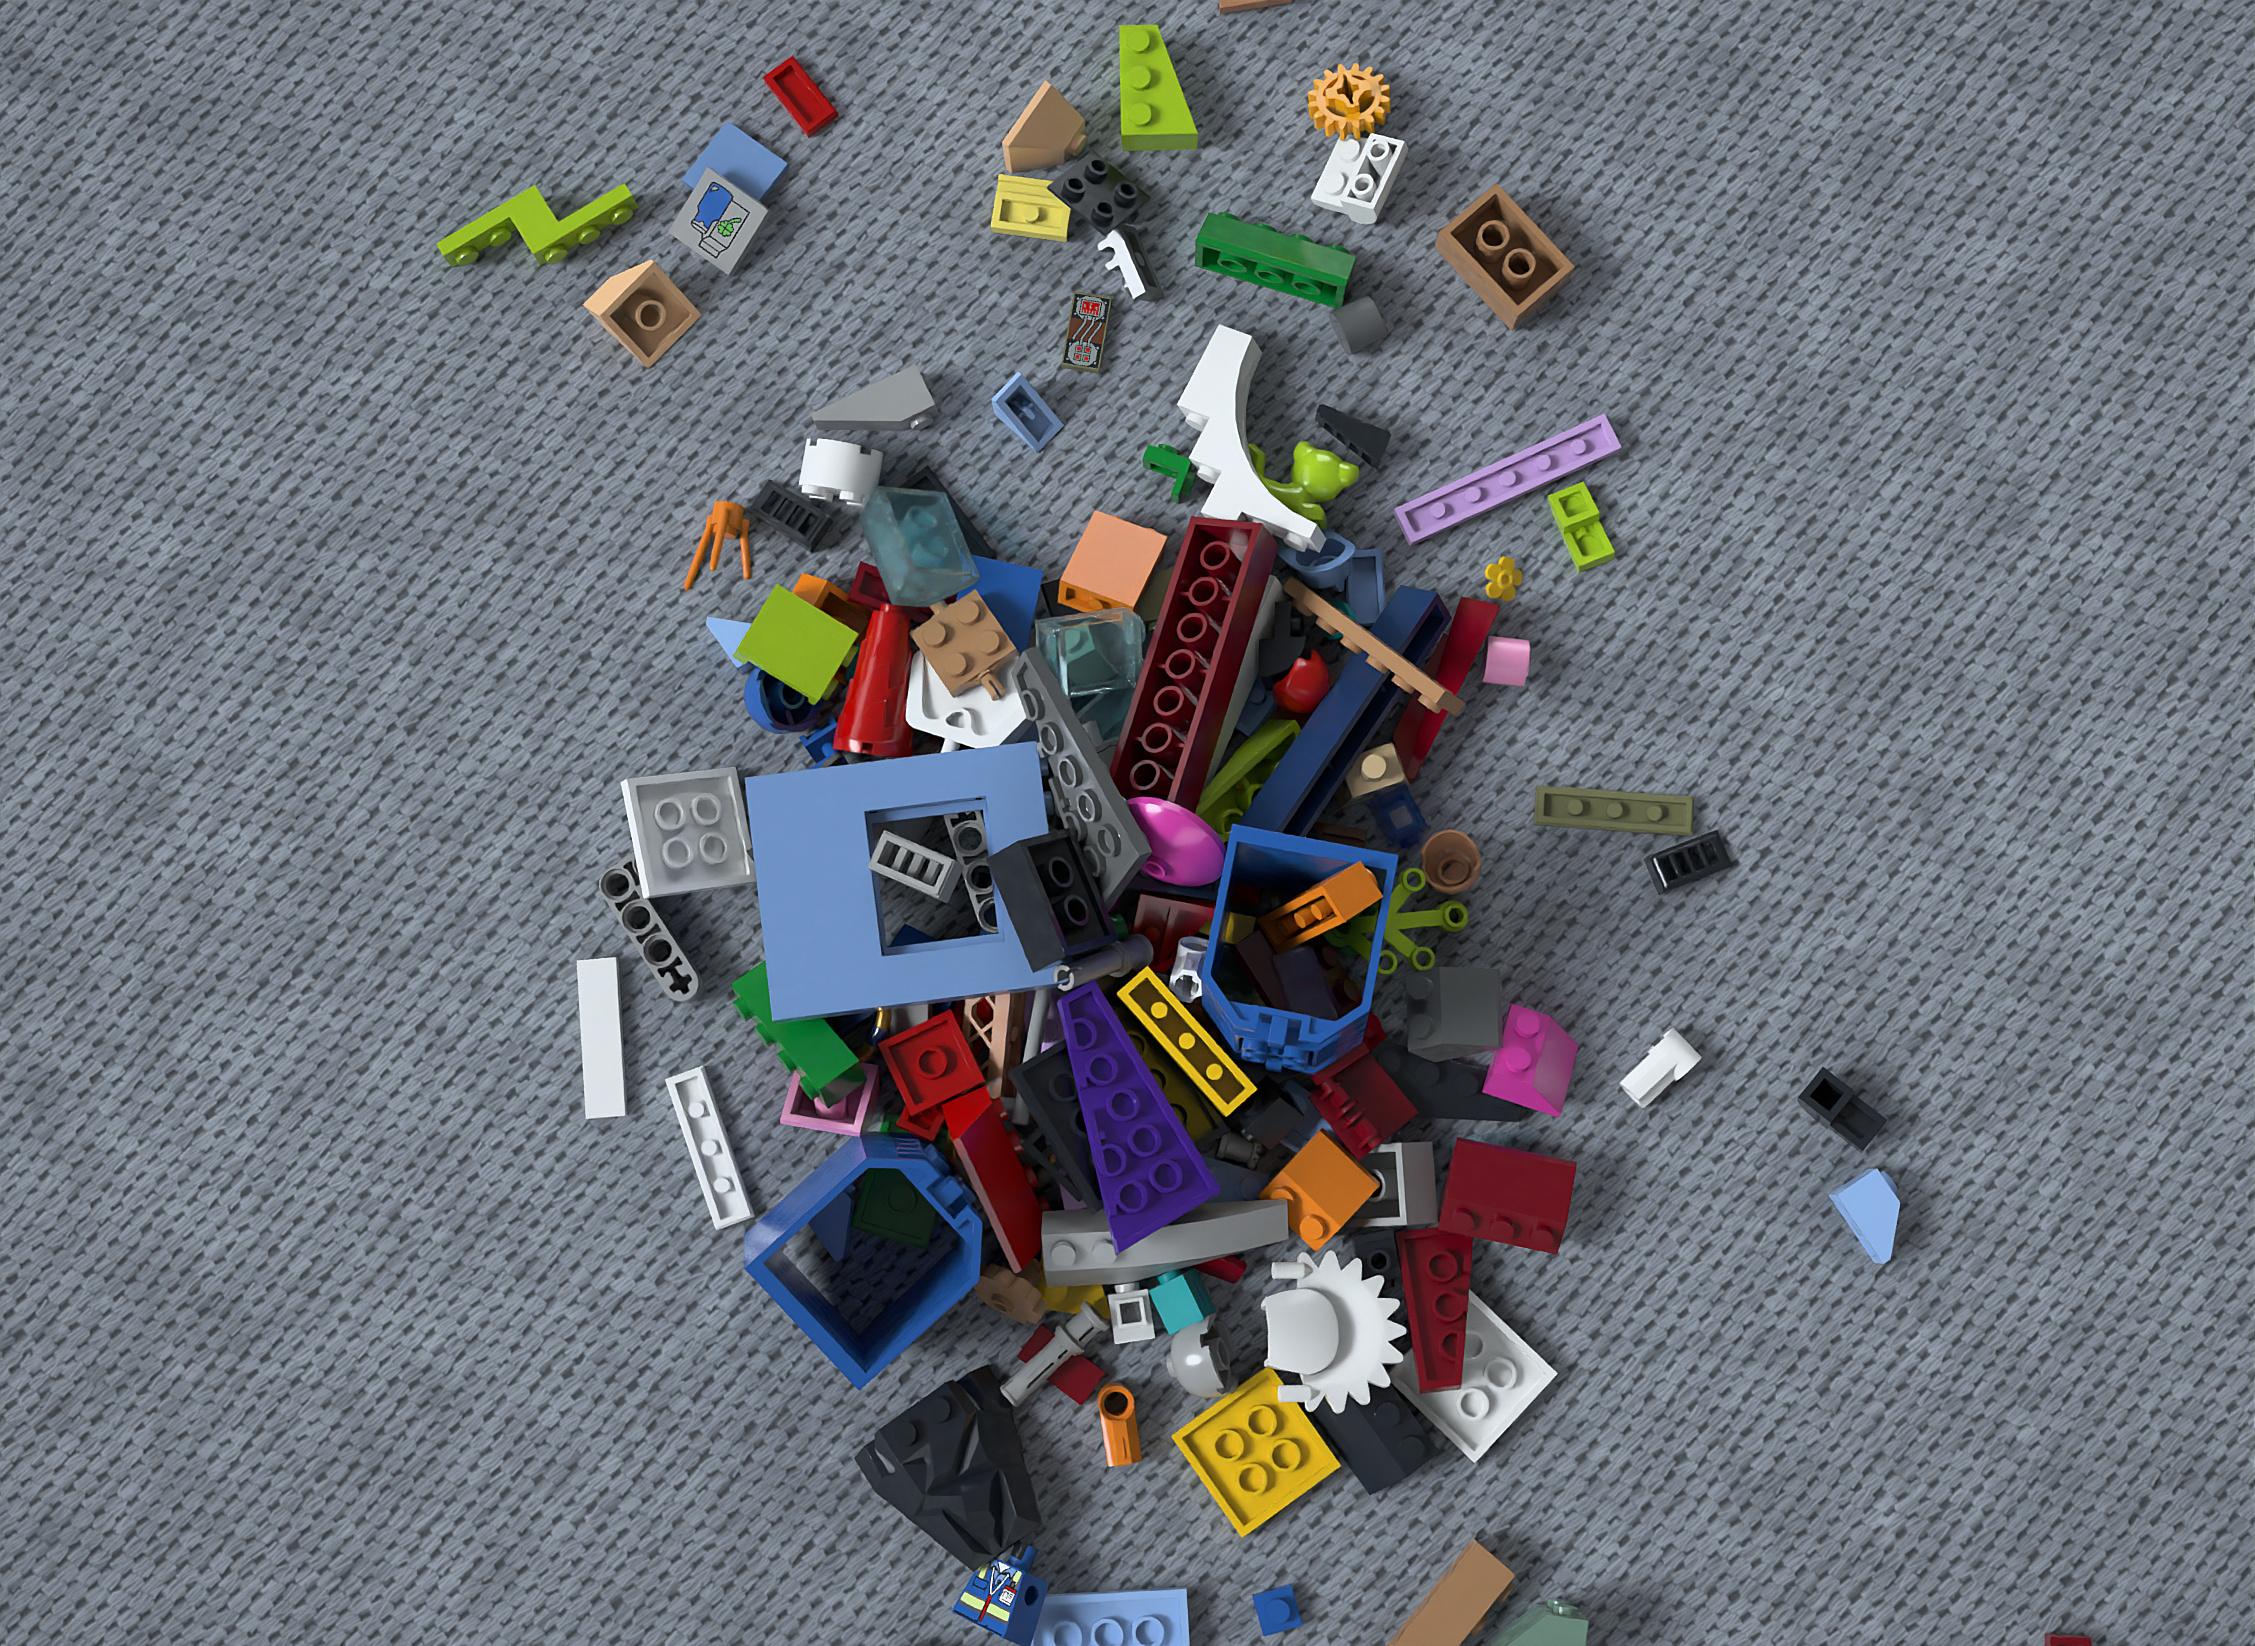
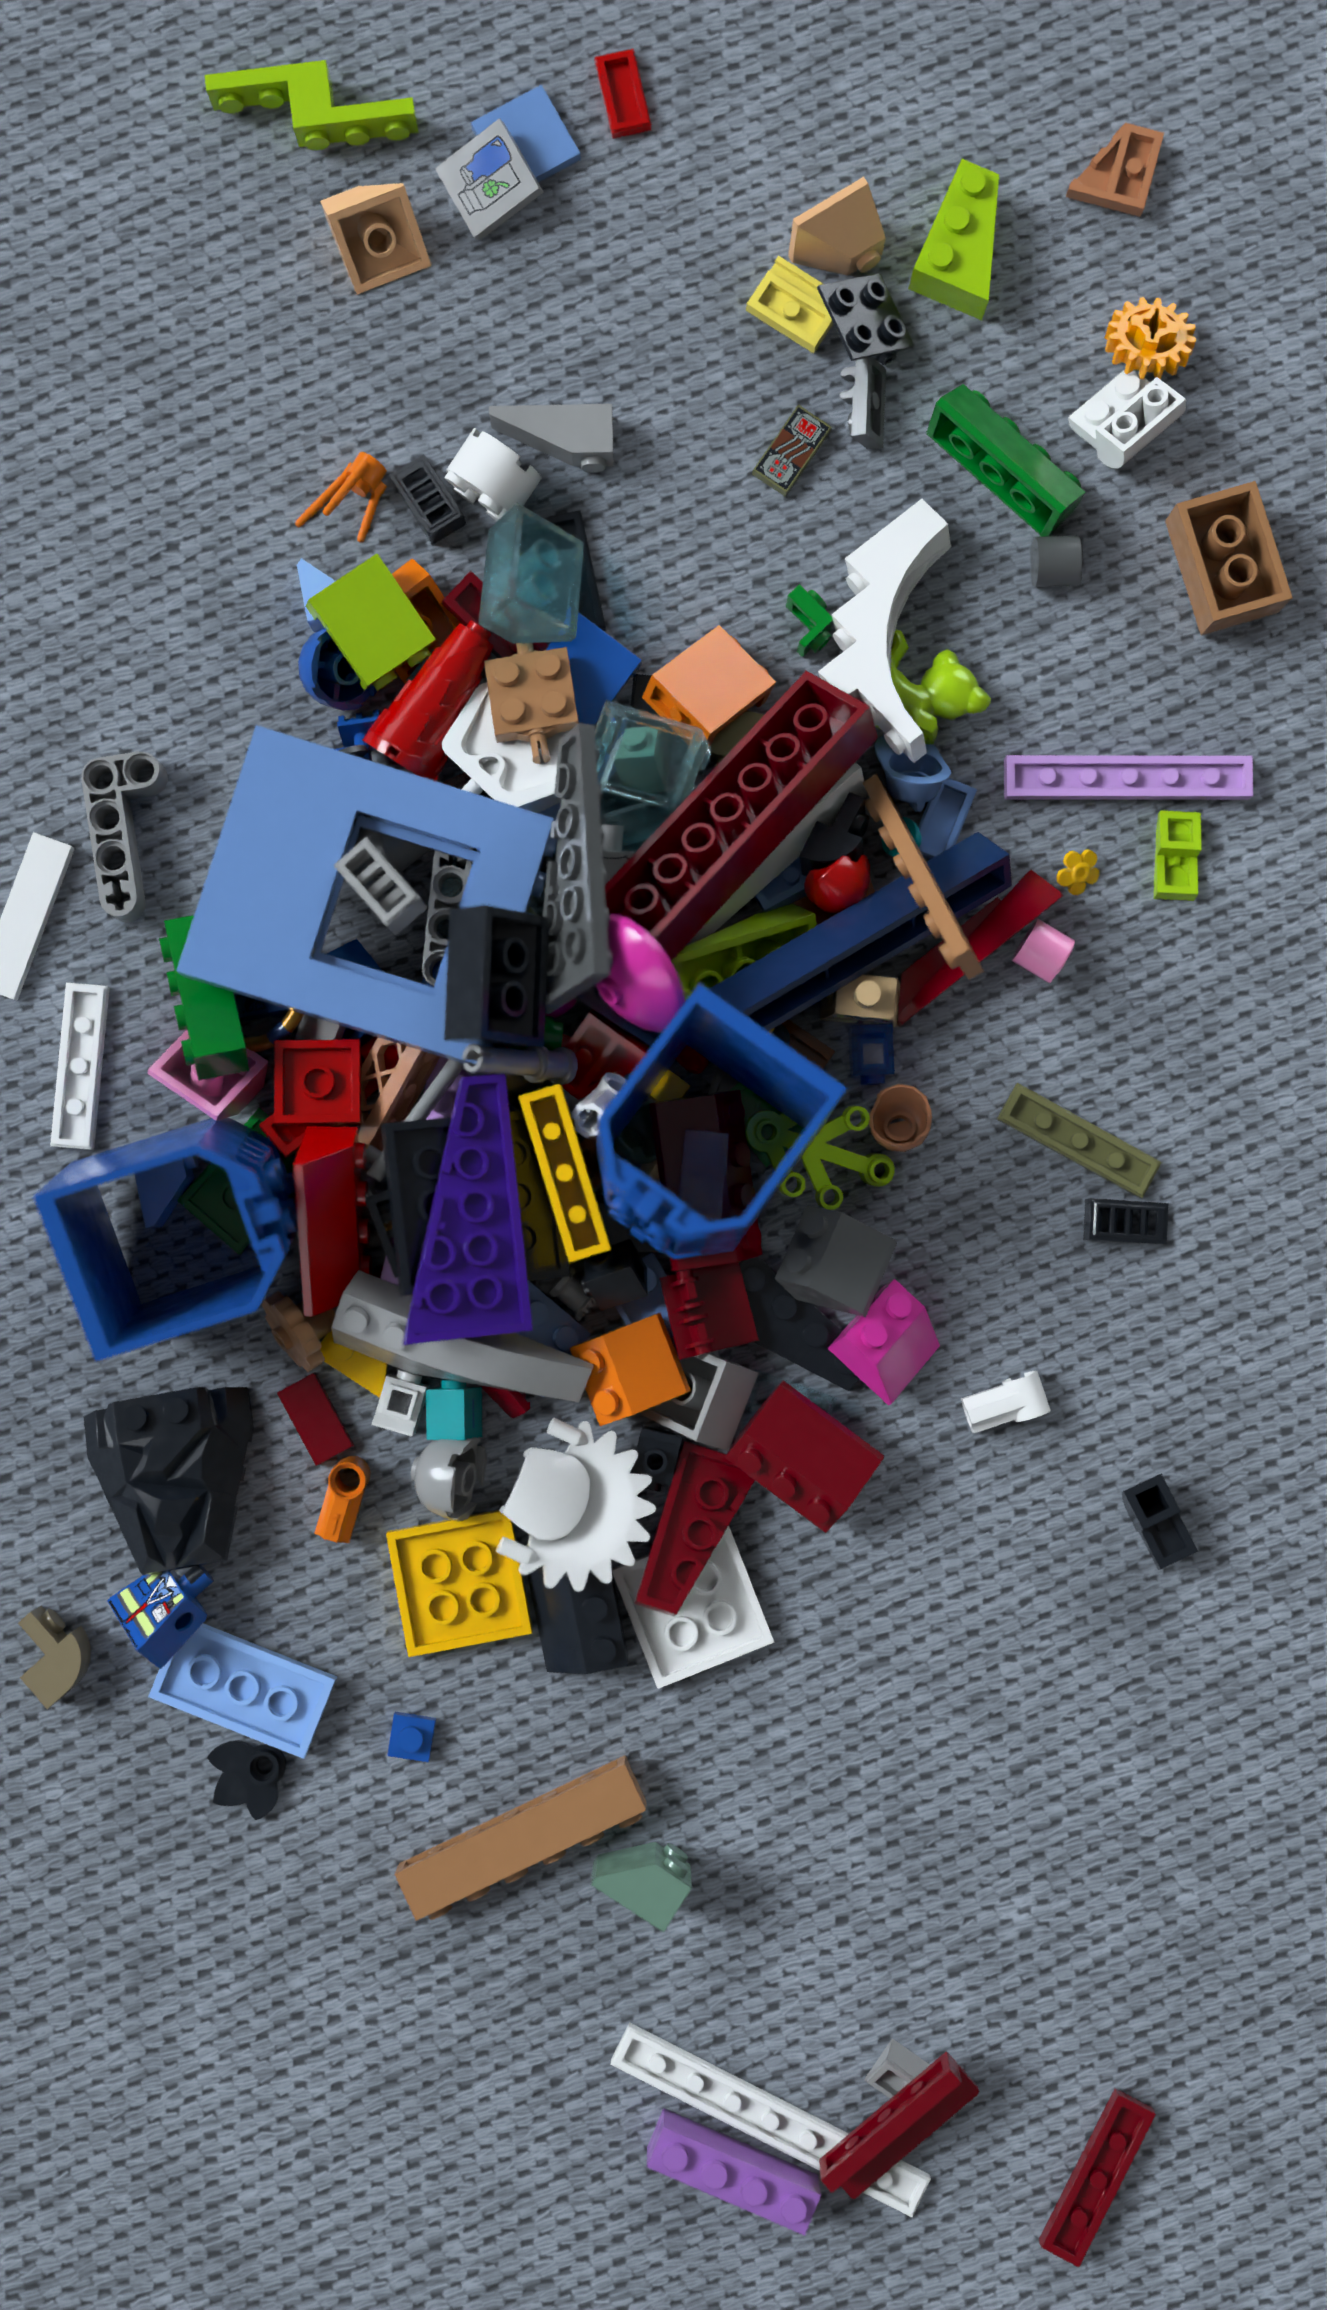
camera: 15 degrees right, 5 degrees up
(689, 832) = (185, 754): white plate -> none
(1026, 412) = (697, 500): light blue slope -> none
(1068, 1341) = (329, 1402): light grey pin -> none
(1320, 907) = (751, 1104): orange brick -> none
(1359, 436) = (1005, 669): black slope -> none
(1870, 1211) = (1140, 1628): light blue slope -> none

